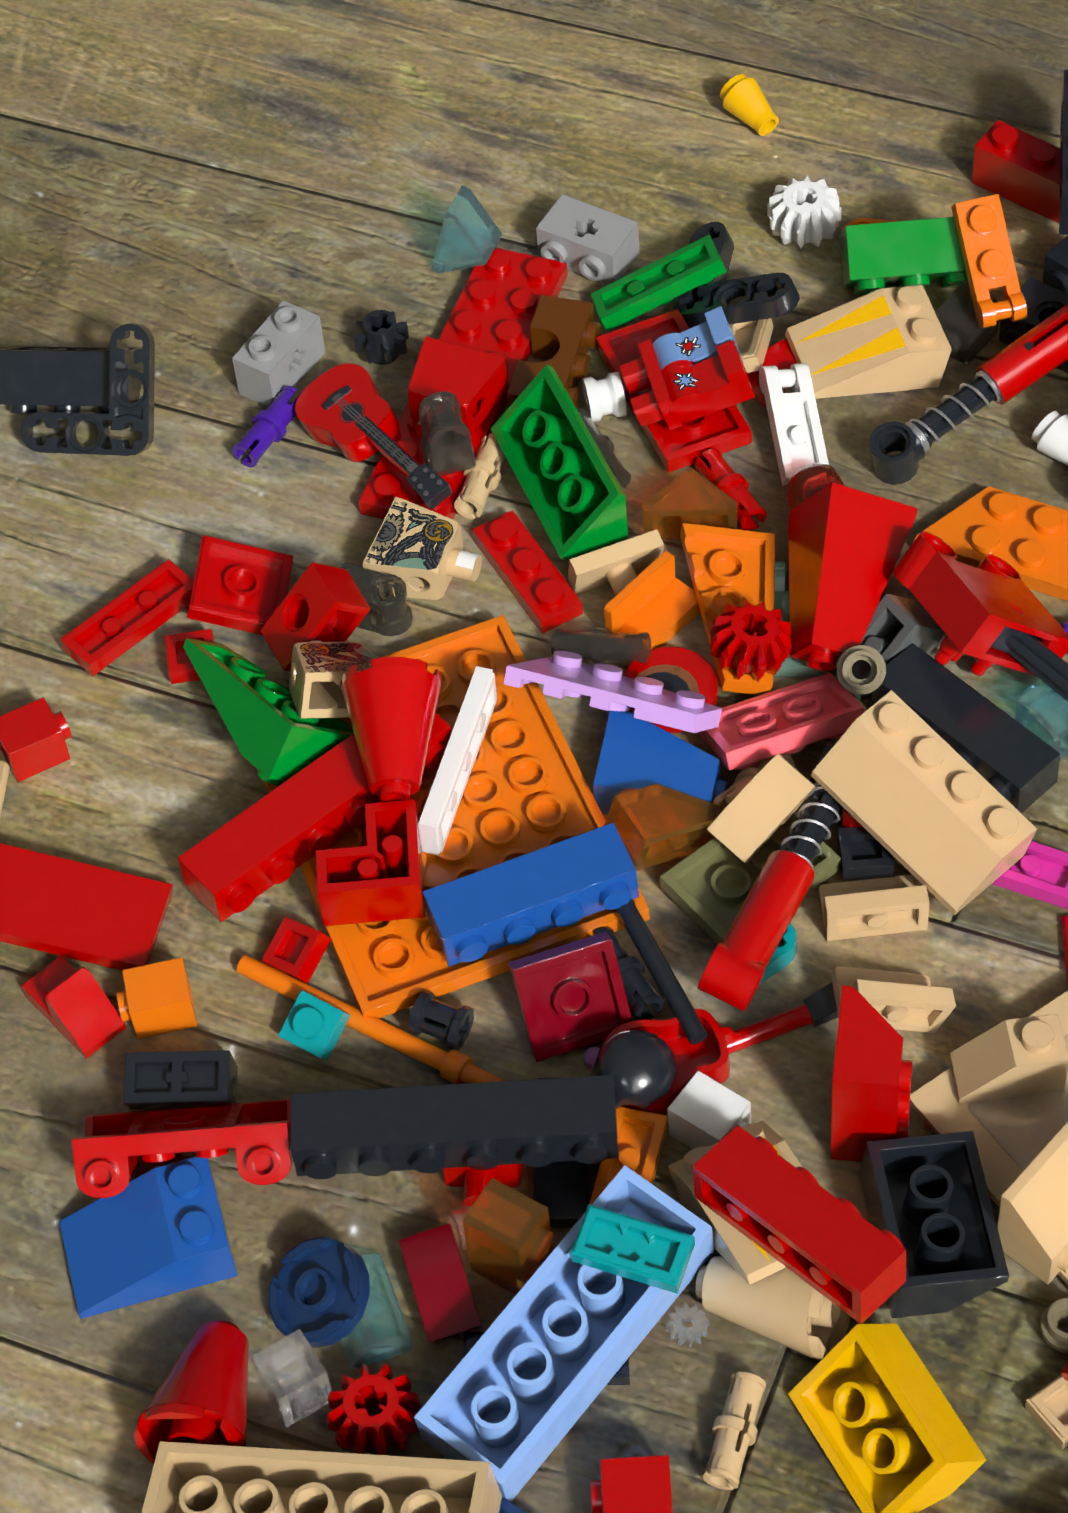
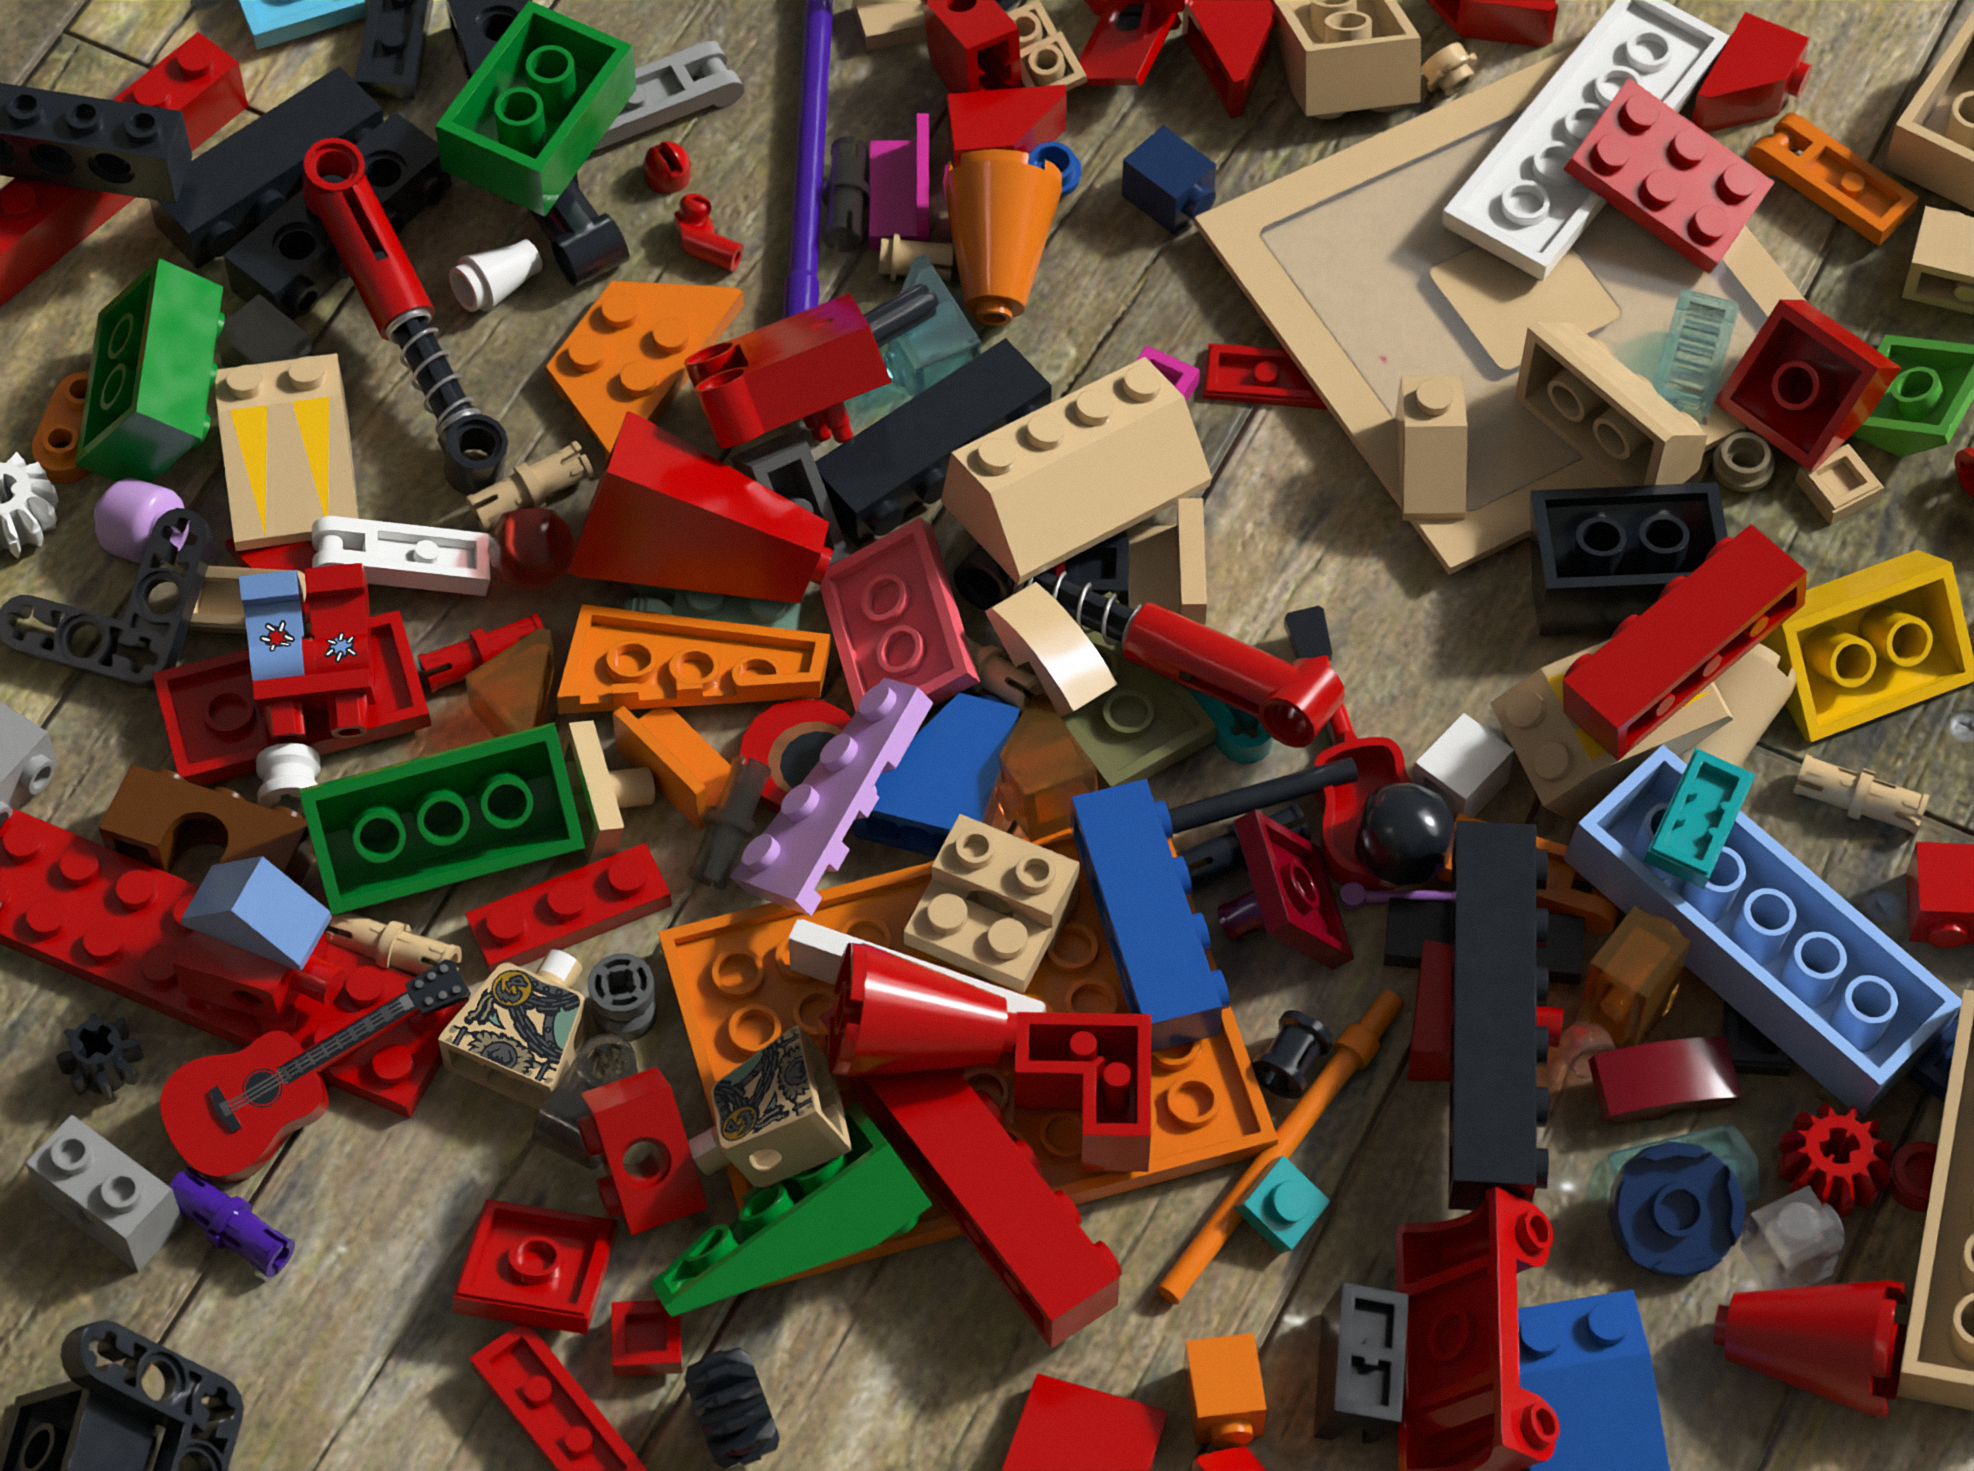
camera: 90 degrees left, 5 degrees up
(129, 700) = (731, 1408): none -> black gear
(296, 949) = (1167, 1218): red plate -> none
(445, 437) = (371, 953): clear smoke piece -> none
(450, 602) = (625, 1011): none -> dark grey wheel
(458, 365) = (258, 911): none -> medium blue slope
(528, 794) = (994, 903): none -> tan brick
(658, 283) = (103, 685): green plate -> none
(750, 639) = (779, 633): red gear -> none
(812, 278) = (128, 515): none -> lavender head
(868, 481) = (530, 485): none -> tan pin
(868, 1080) = (1462, 580): red slope -> none
(876, 675) = (856, 515): dark tan plate -> none
(899, 997) = (1318, 570): tan panel -> none
(988, 260) = (224, 273): orange plate -> none

